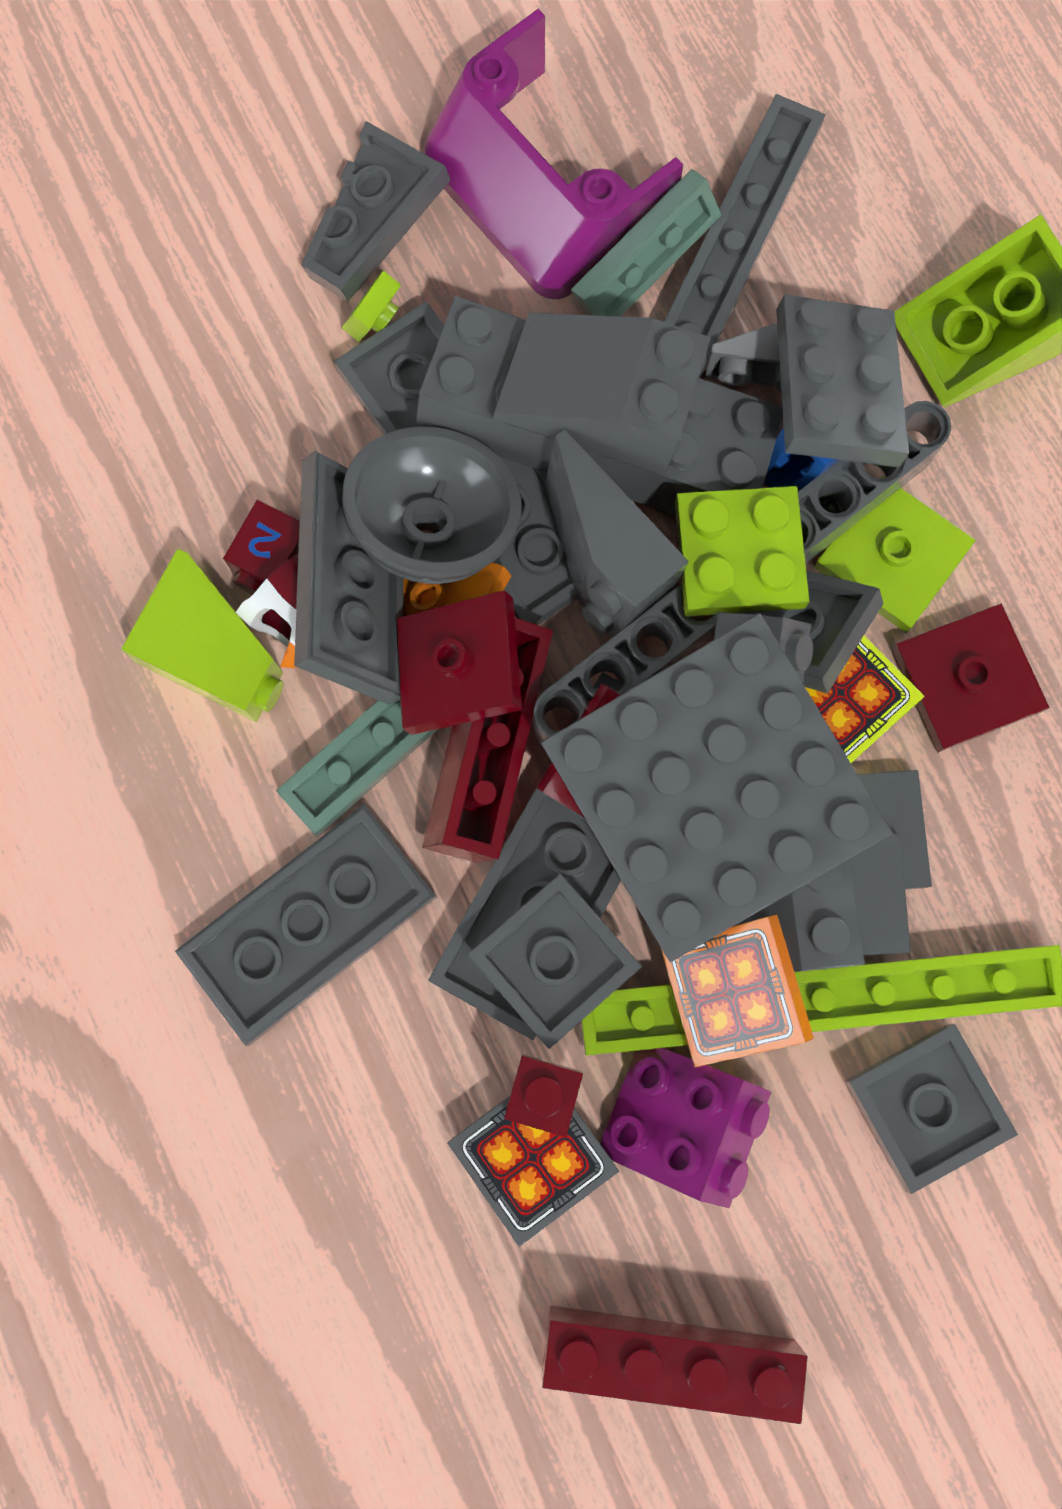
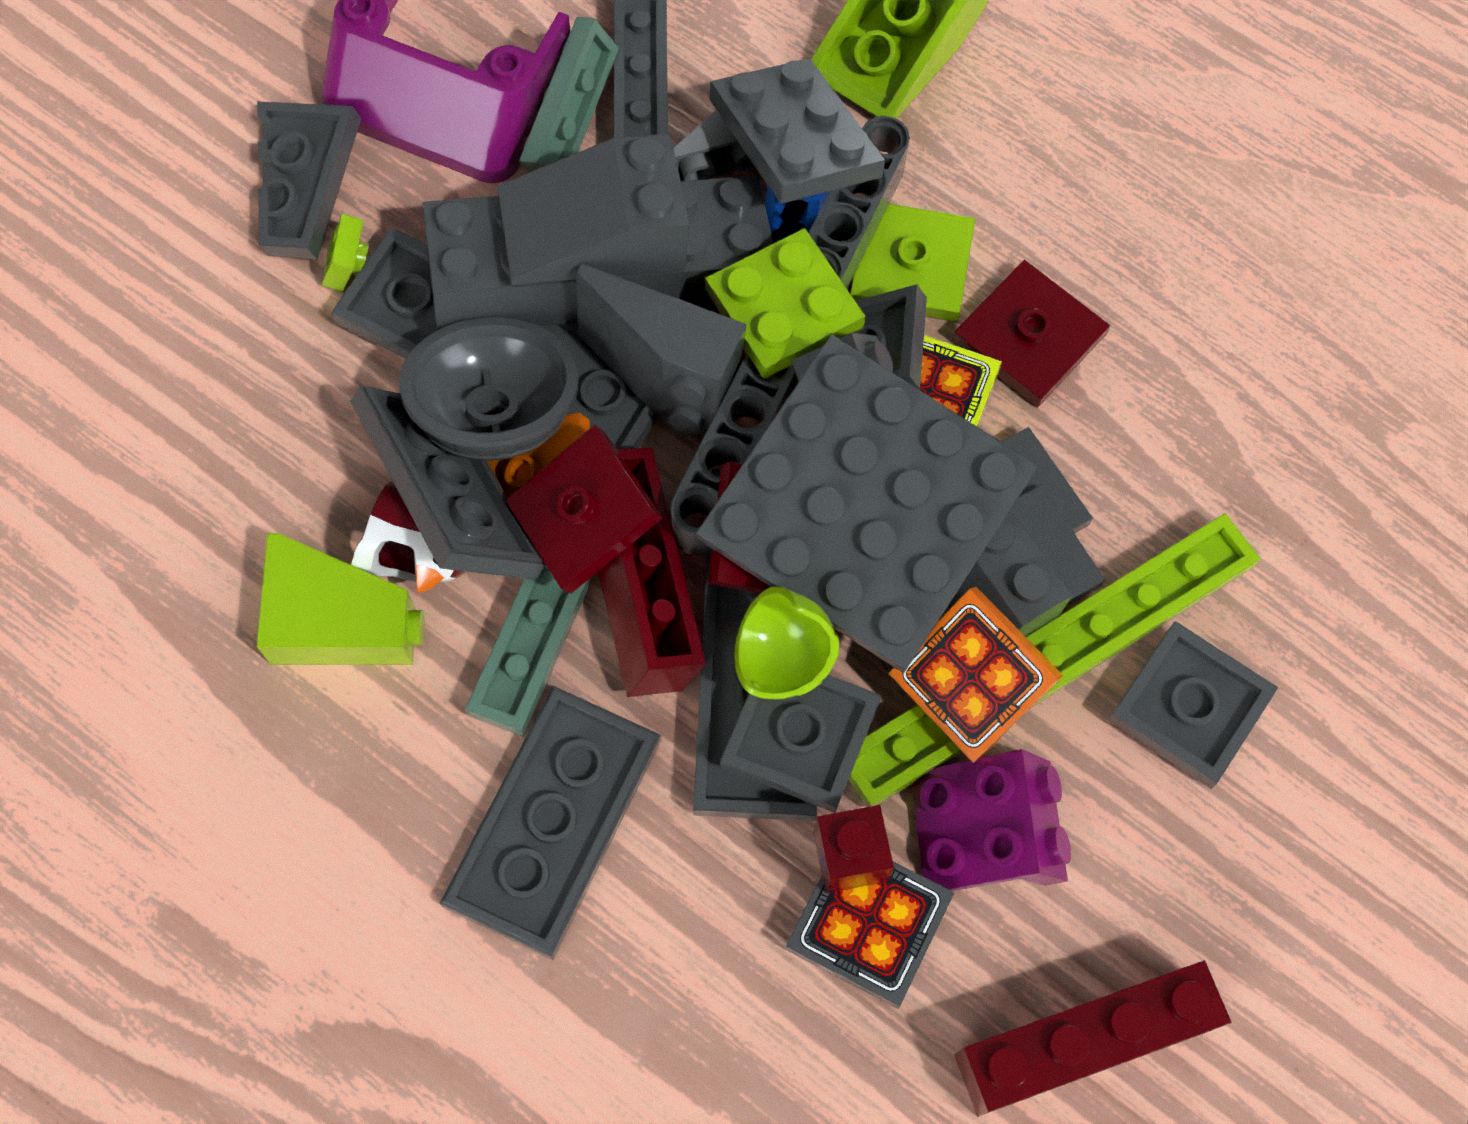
camera: 30 degrees left, 10 degrees down
(262, 546) = (346, 498): dark red brick -> none
(571, 883) = (784, 645): none -> lime helmet

